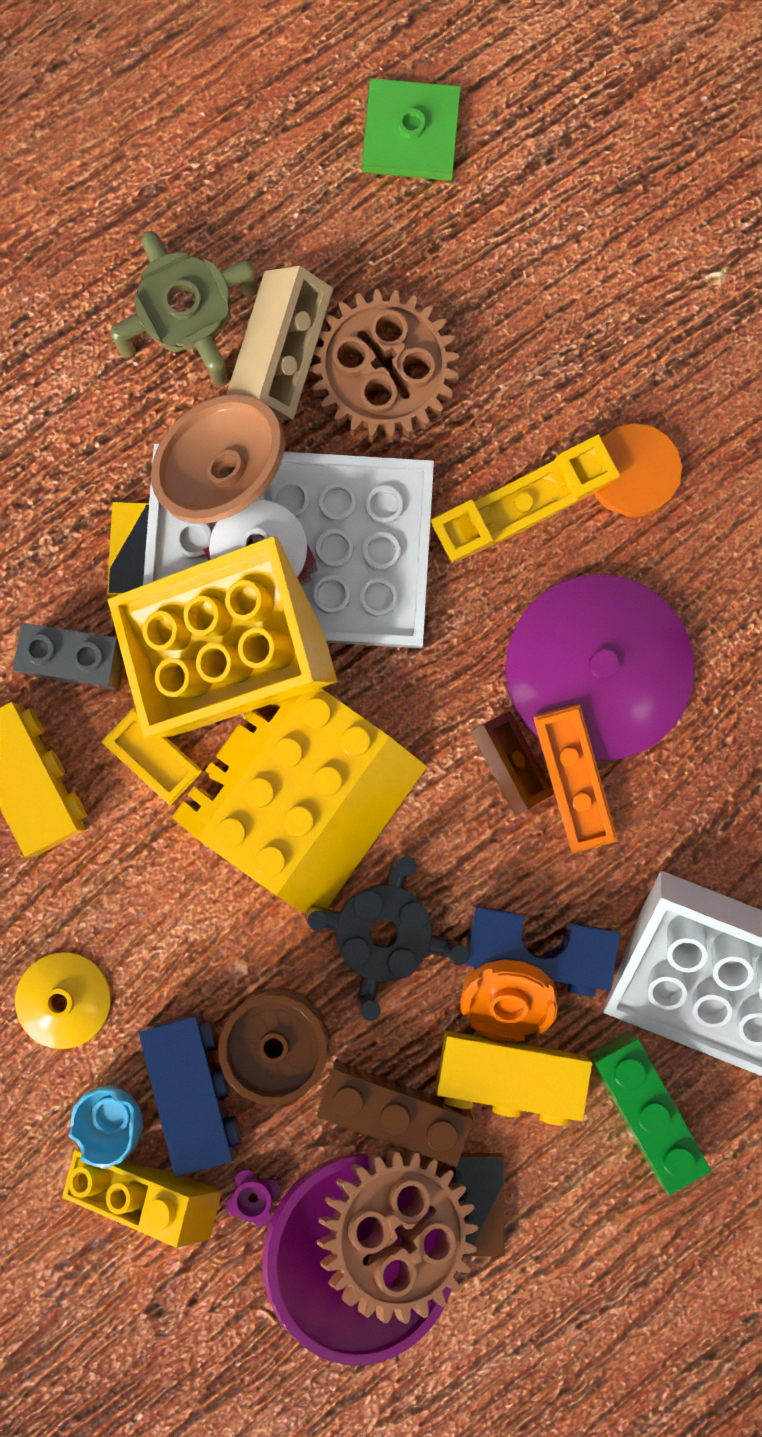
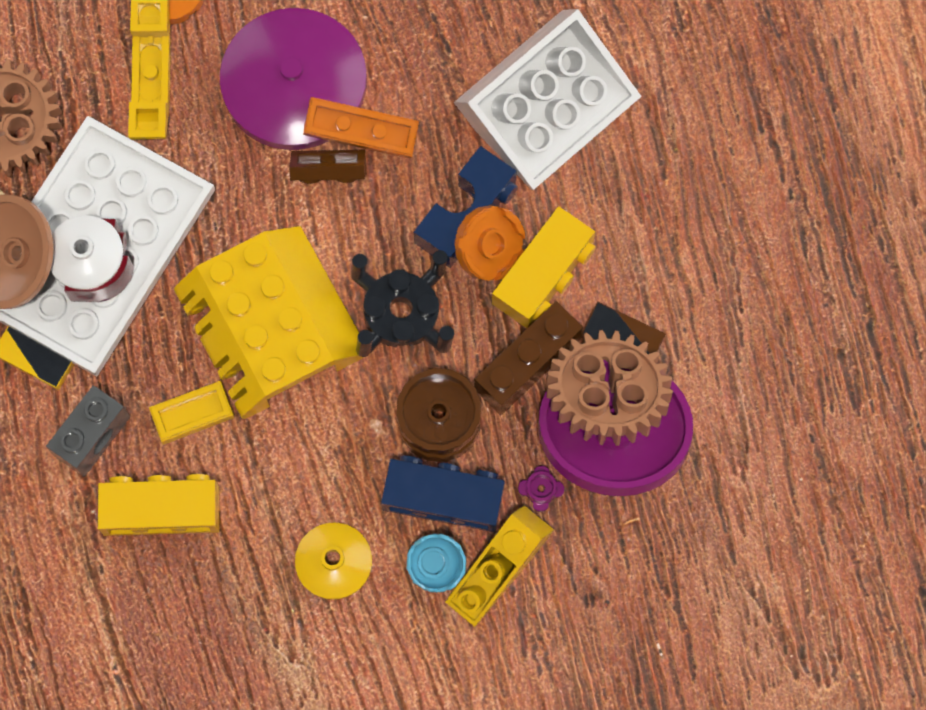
camera: 60 degrees left, 10 degrees down
(219, 640) = (134, 311): yellow slope -> none
(649, 1112) = (614, 188): green brick -> none

